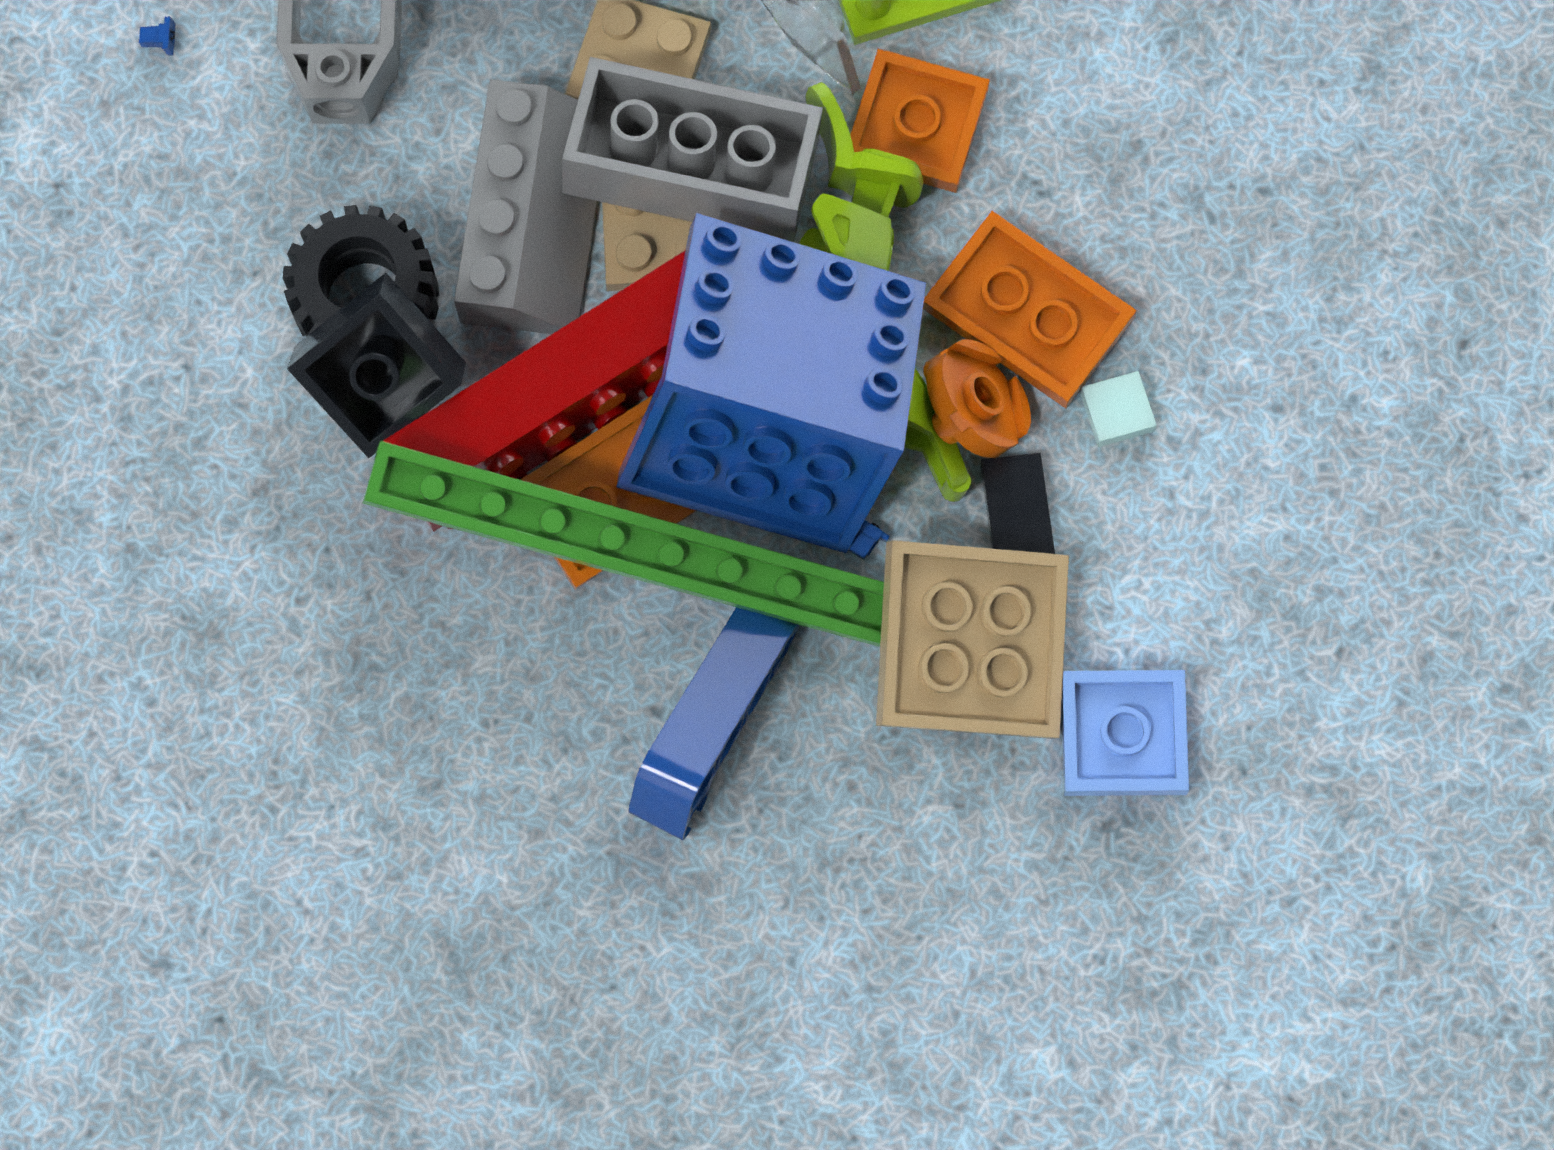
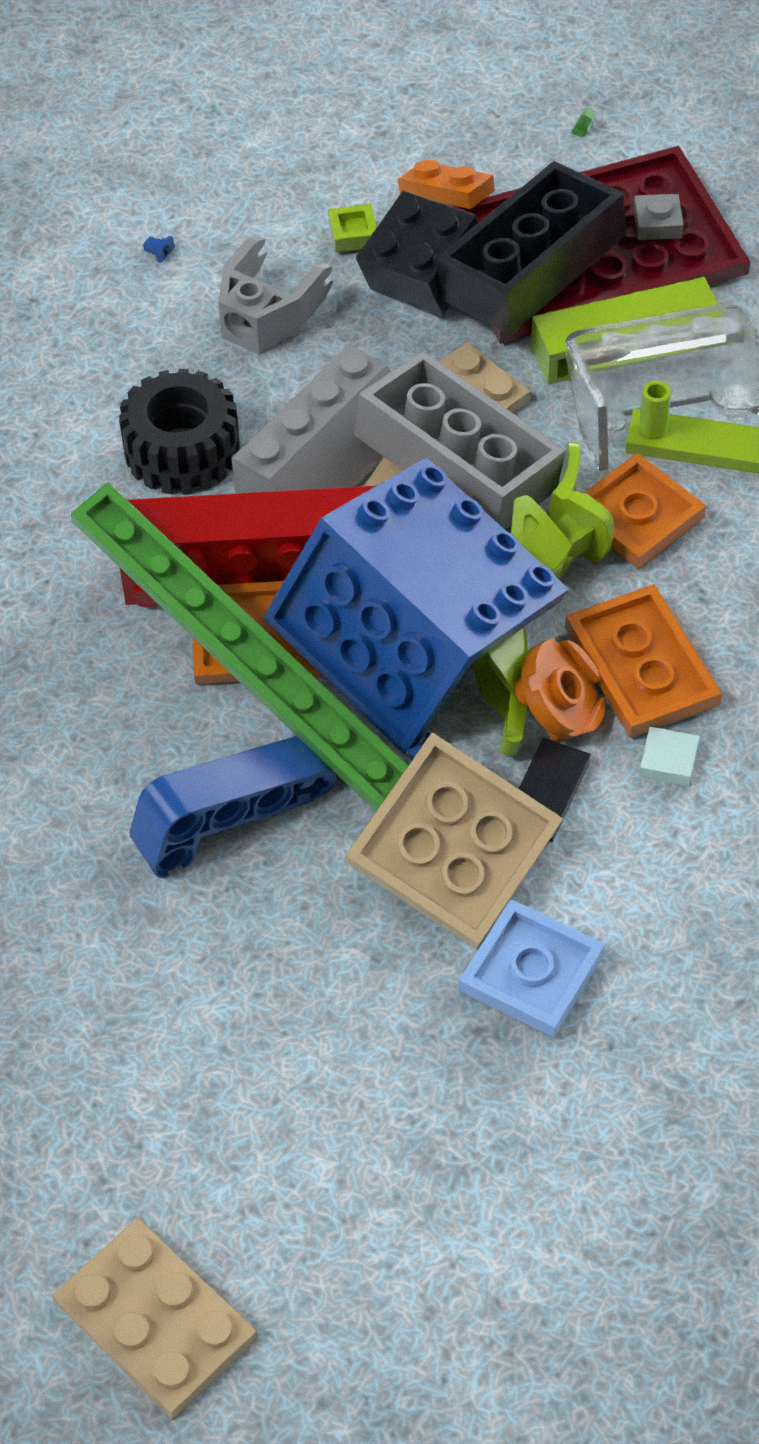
camera: 30 degrees right, 20 degrees down
(377, 365) = (148, 450): black brick -> none

